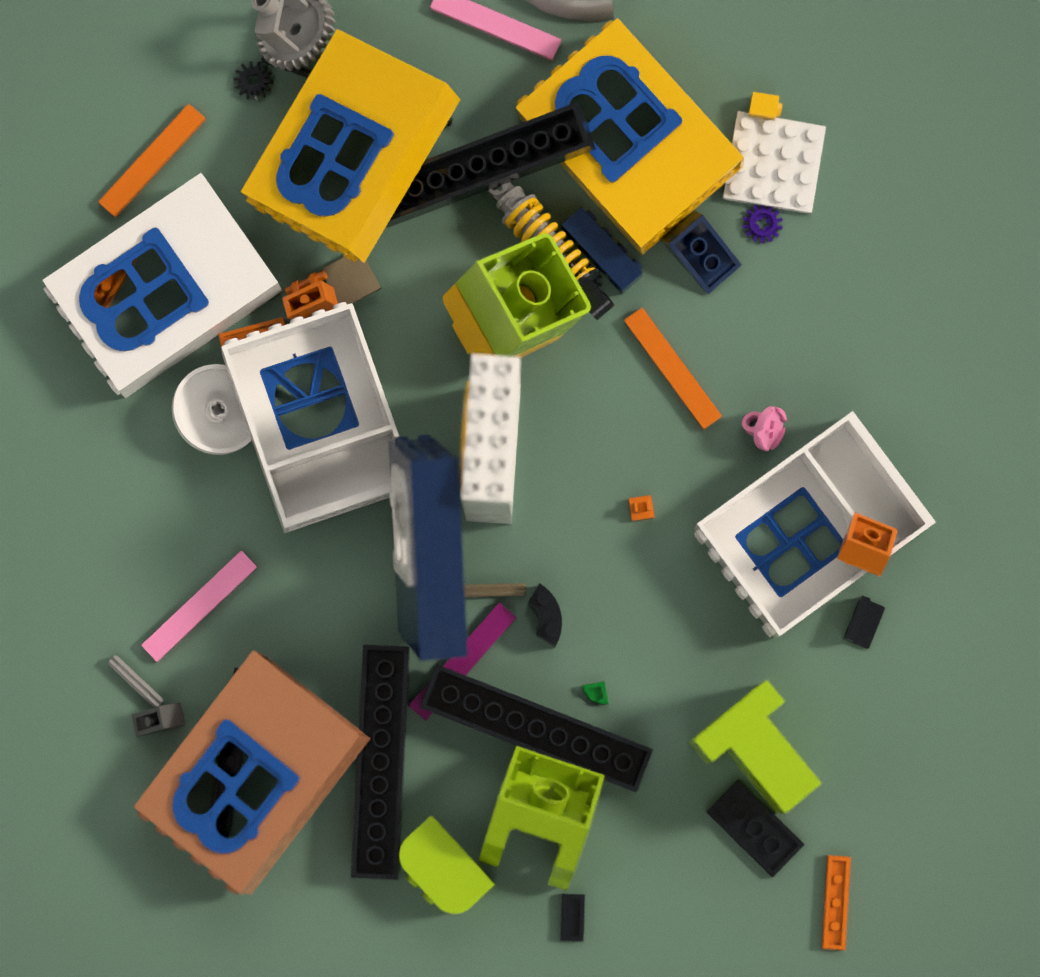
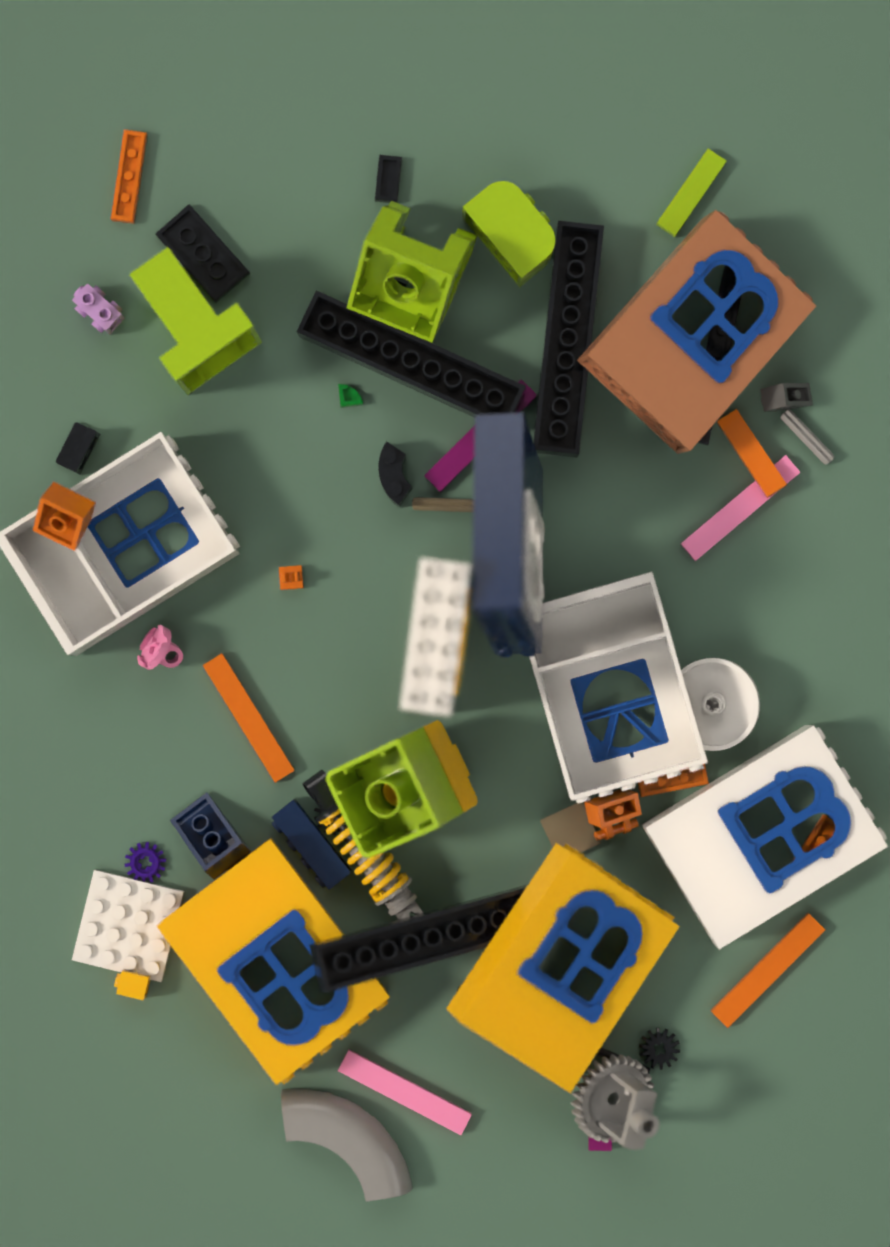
camera: 175 degrees left, 5 degrees up
(190, 660) = (752, 453): none -> orange tile
(264, 923) = (691, 192): none -> lime tile
(861, 768) = (91, 303): none -> lavender brick

